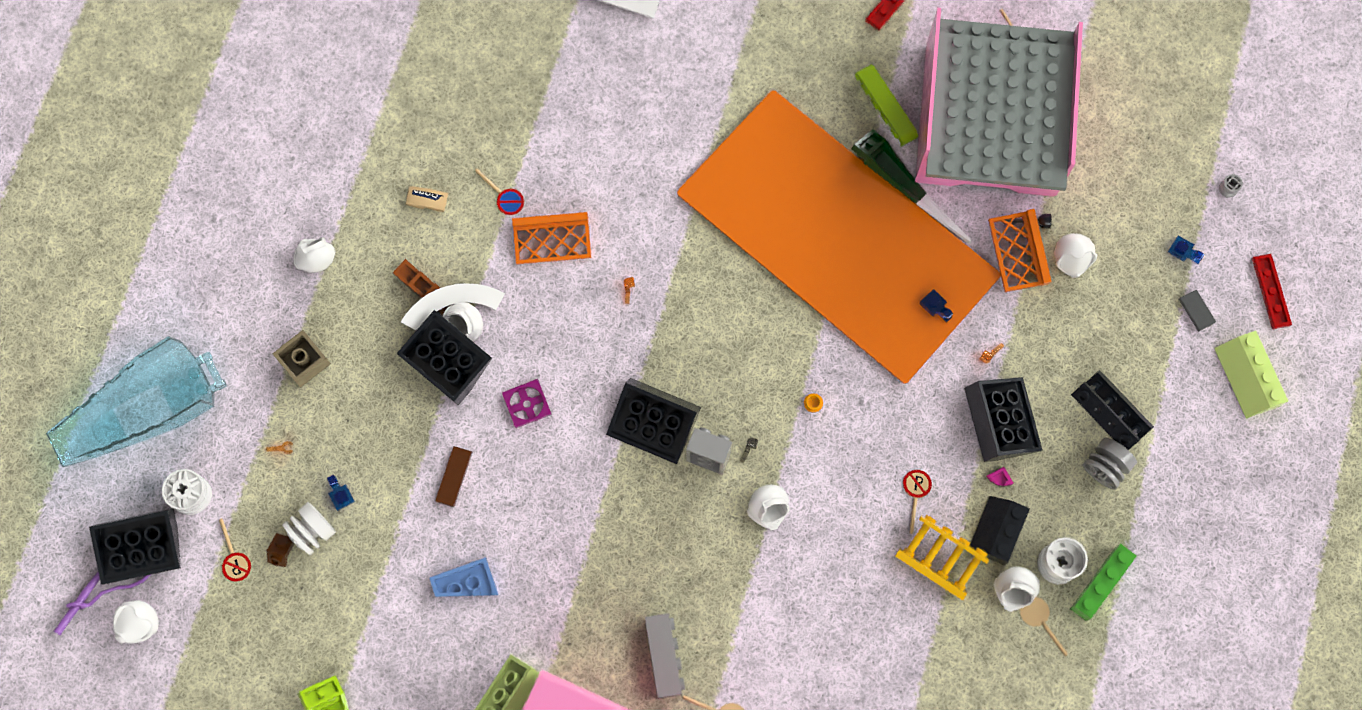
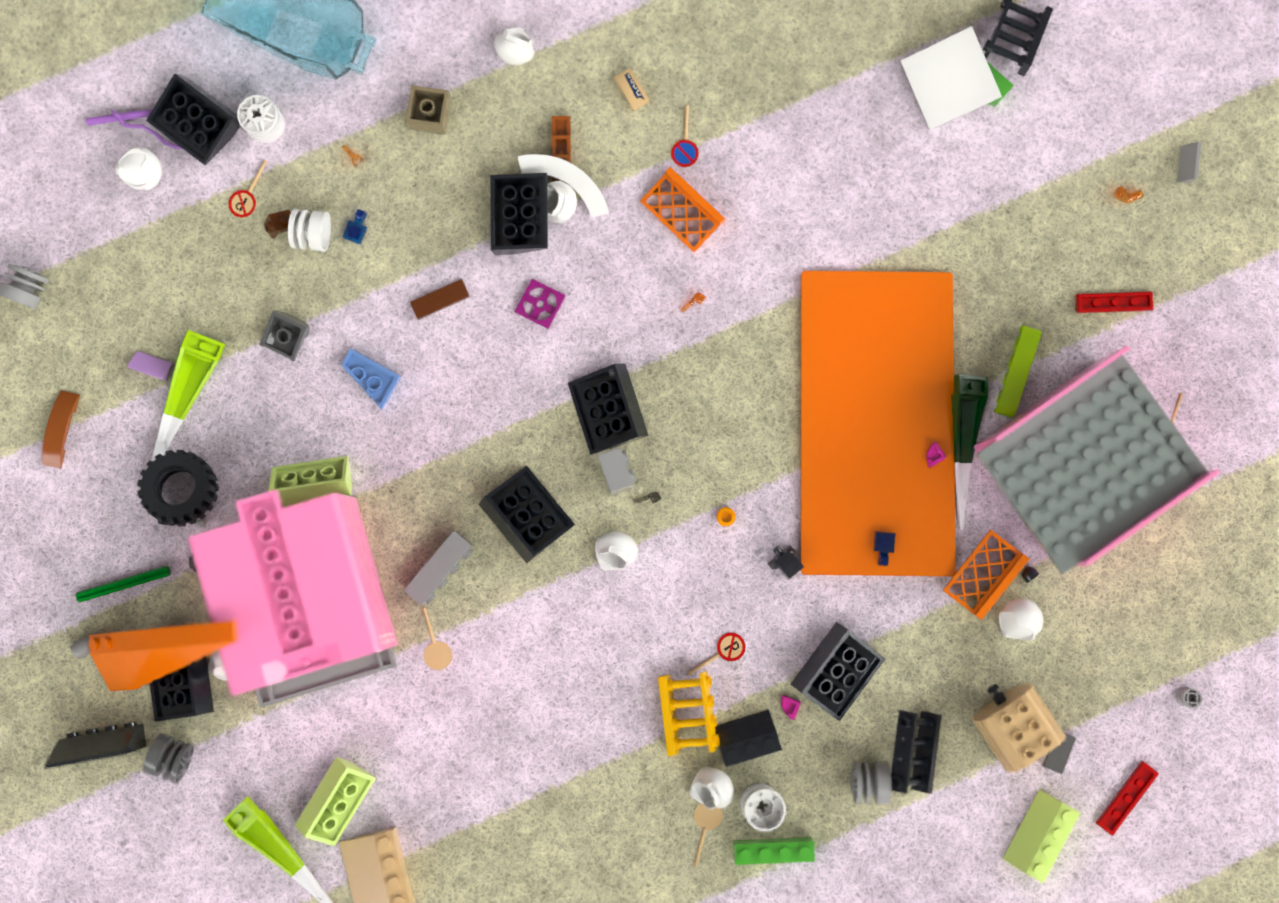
camera: 50 degrees right, 10 degrees up
(371, 620) = (285, 334): none -> dark grey slope
(680, 552) = (526, 514): none -> black slope
(887, 386) = (786, 561): none -> black piece
(898, 213) = (934, 455): none -> dark pink tile
(987, 356) = (877, 618): clear orange hand -> none
(1154, 320) = (1018, 726): none -> tan piece
(1183, 249) = (1100, 701): clear blue plate -> none

